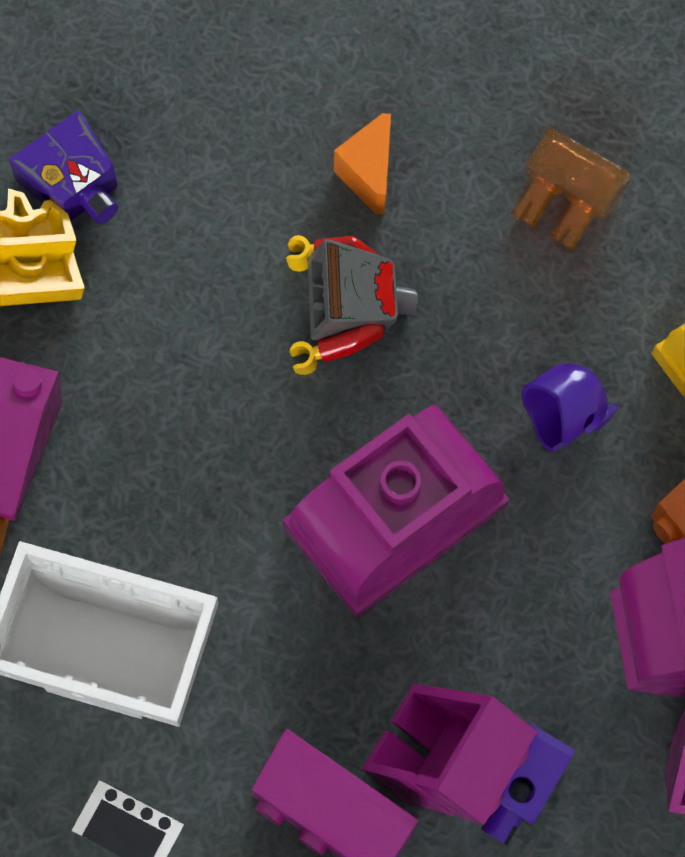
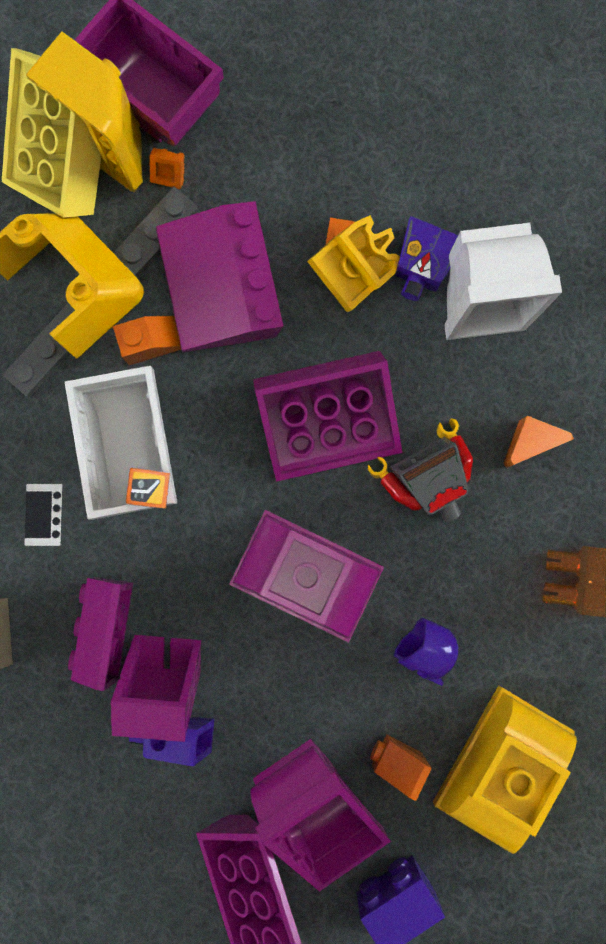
camera: 65 degrees right, 15 degrees up
(155, 94) = (498, 281): none -> white container
(180, 617) = (147, 488): none -> slope
(202, 383) = (328, 415): none -> magenta slope

